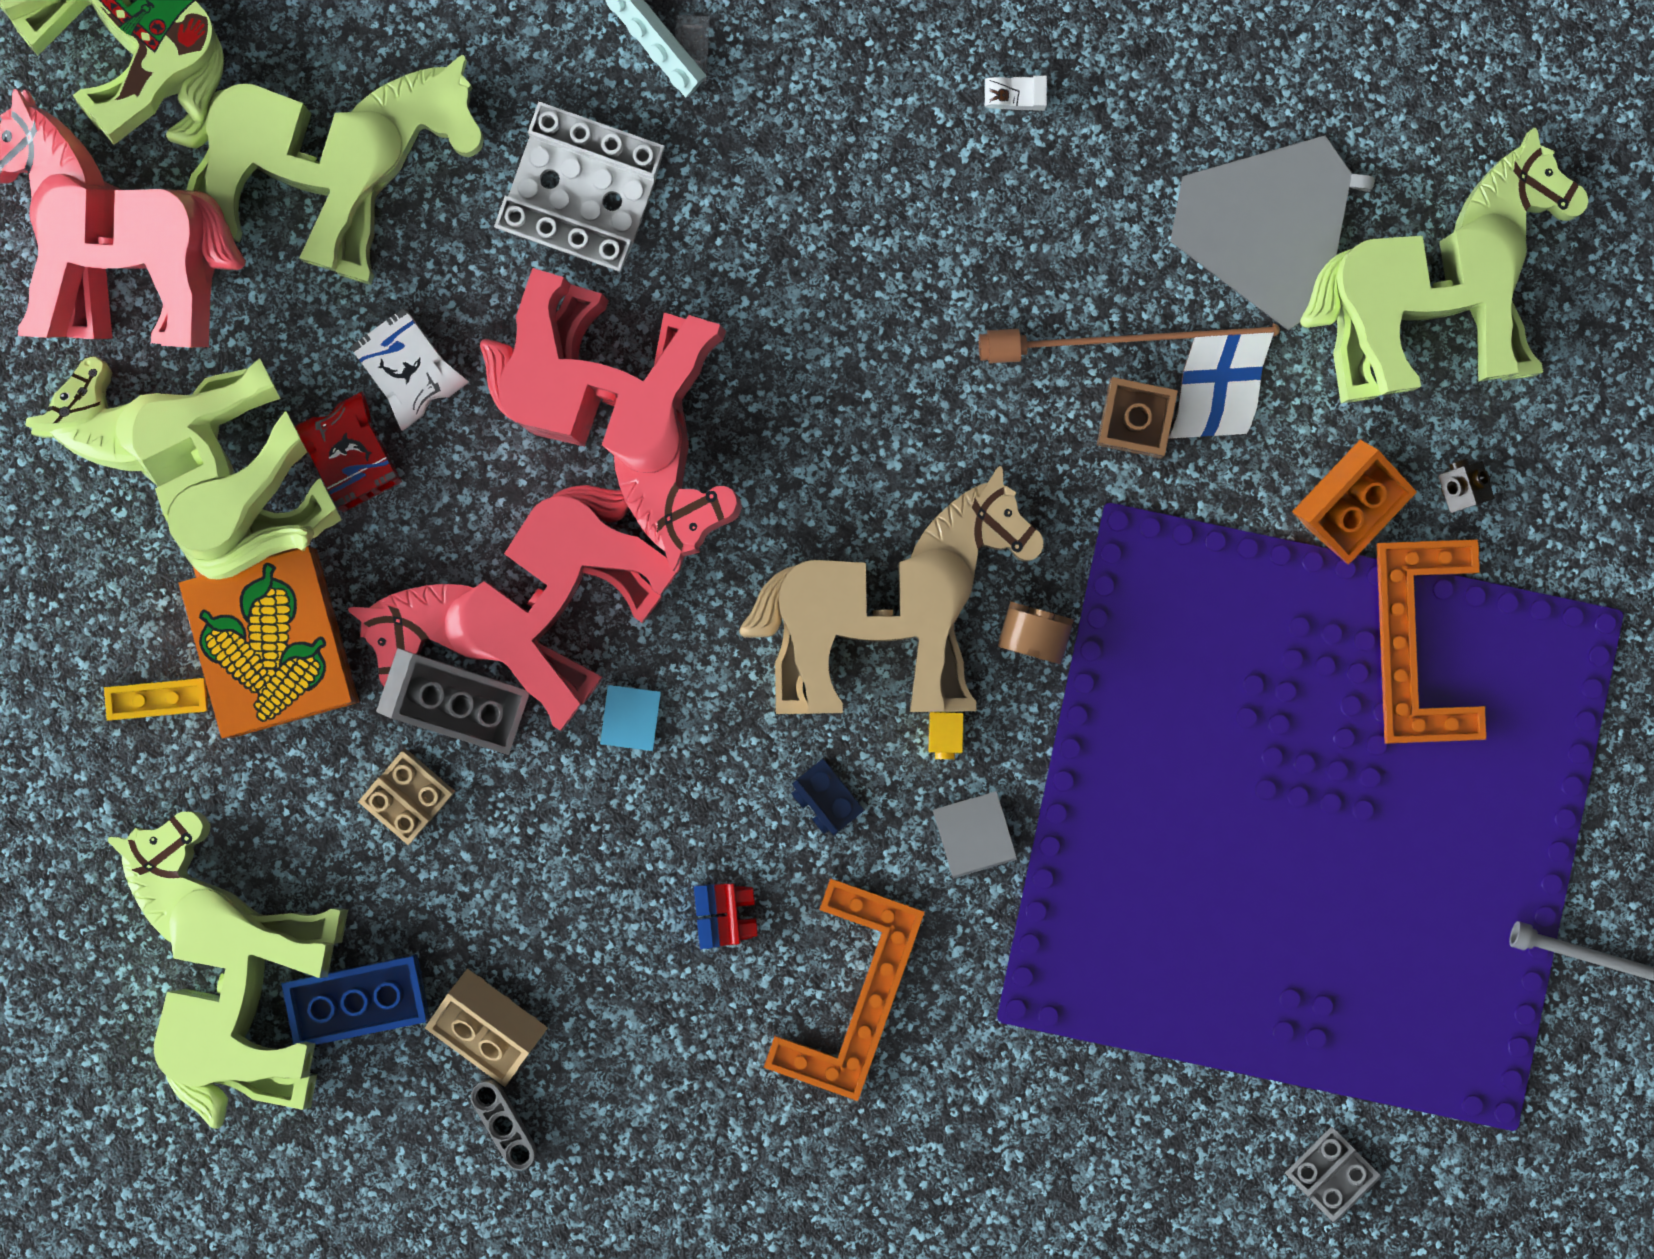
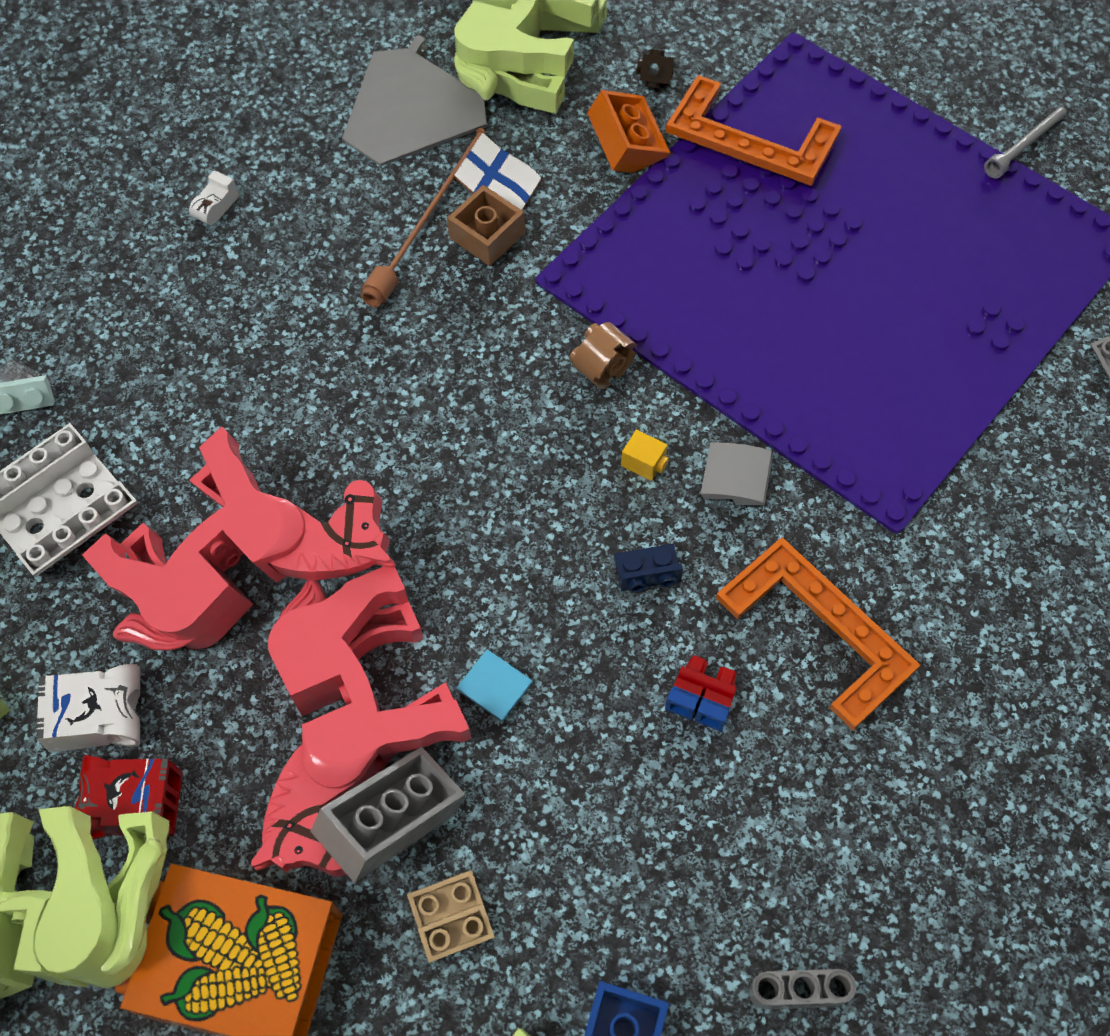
camera: 55 degrees left, 25 degrees down
(486, 1027) = (702, 956): tan slope -> none
(934, 584) = (497, 480): tan animal -> none

